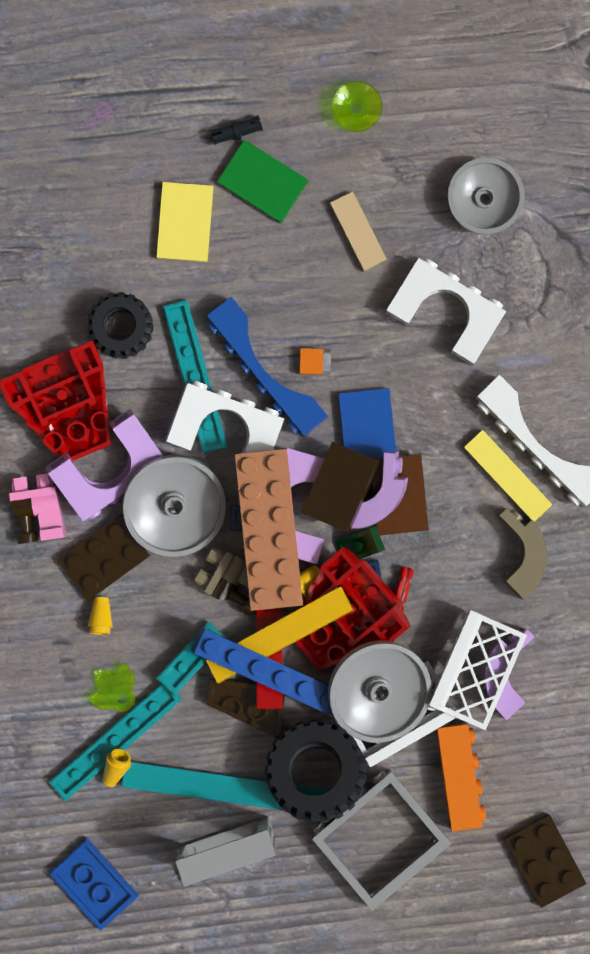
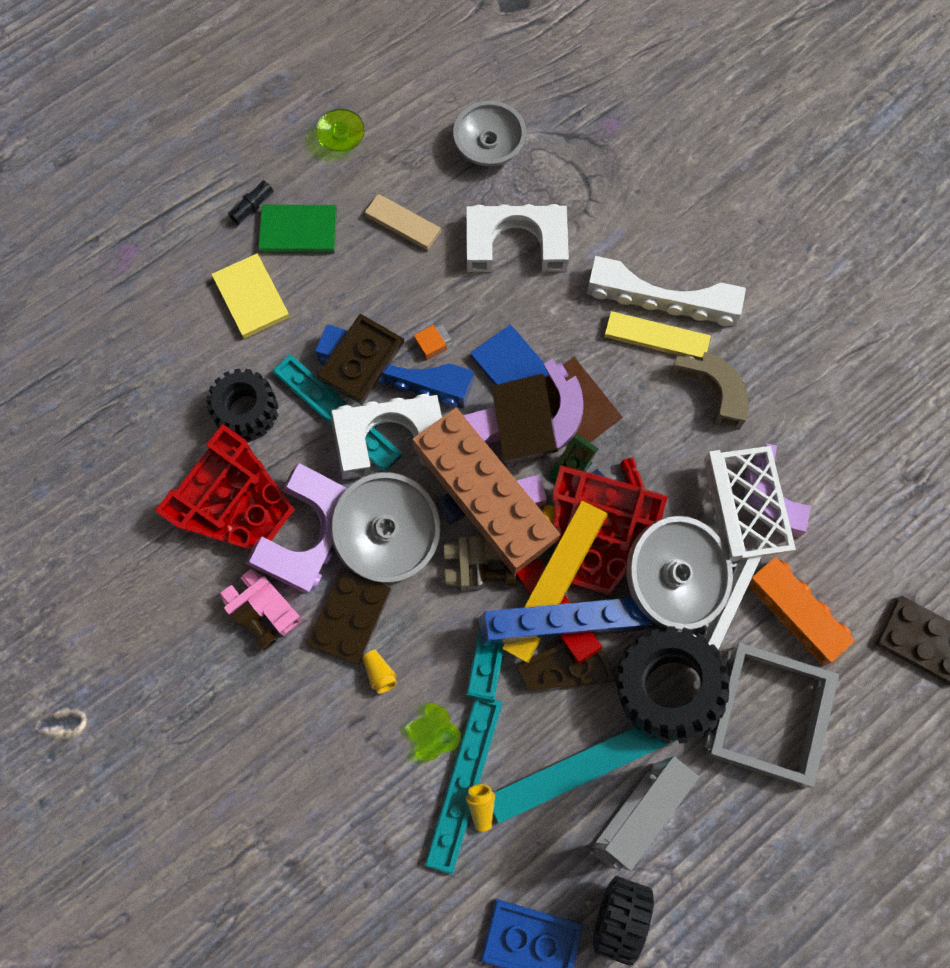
camera: 30 degrees left, 15 degrees down
(166, 912) = (623, 921): none -> black tyre
(239, 348) = (360, 359): none -> dark brown tile

